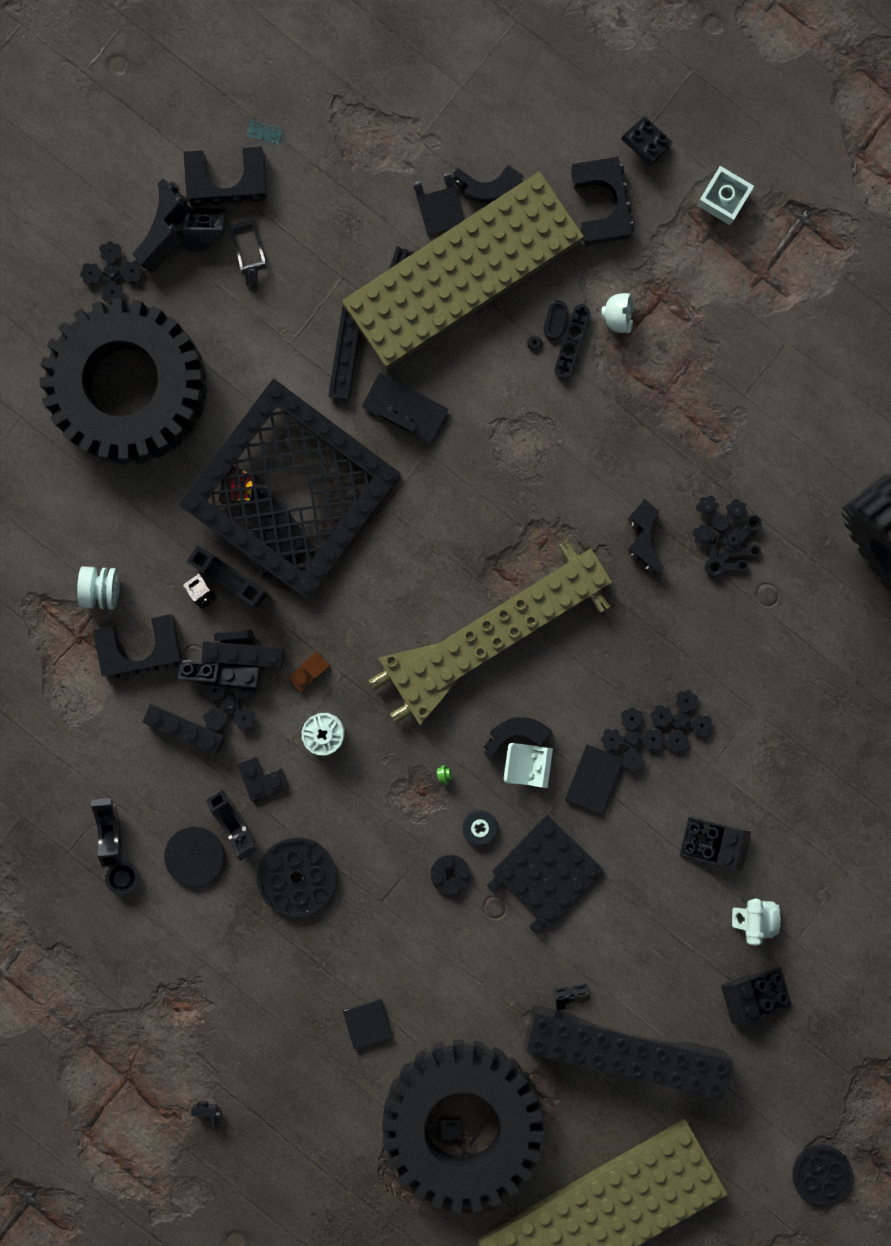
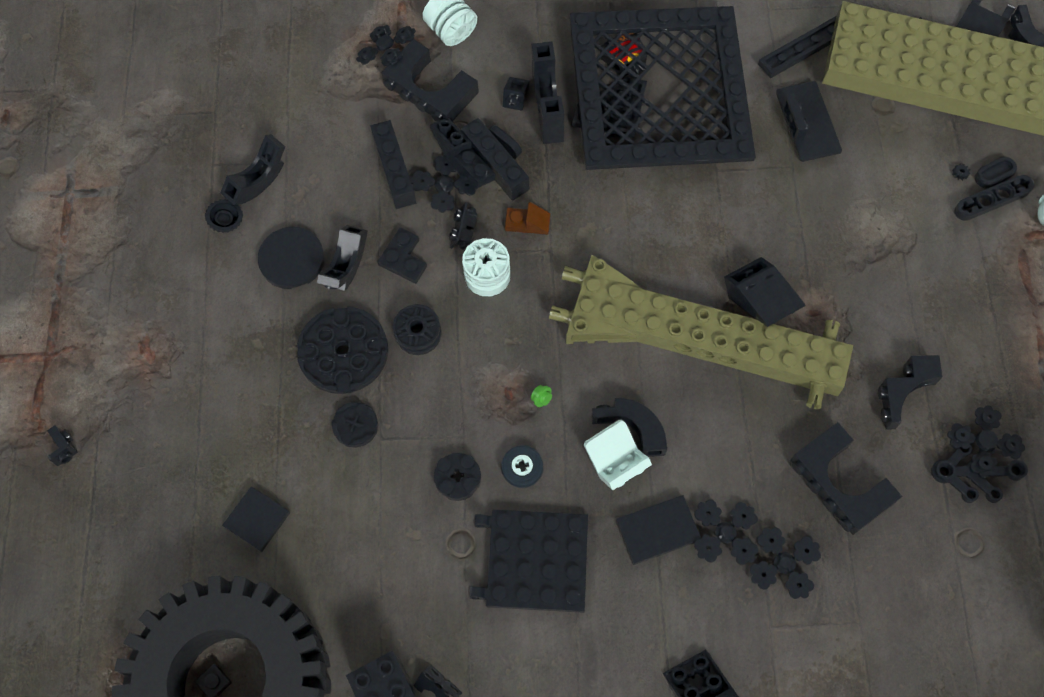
camera: 50 degrees right, 20 degrees down
(76, 651) = (385, 42): none -> black plant
(269, 716) = (459, 233): none -> black hinge
(326, 828) = (412, 317): none -> black wheel
(356, 910) = (355, 424): none -> black tile
(505, 570) = (762, 292): none -> black slope
(690, 648) = (852, 511): none -> black arch

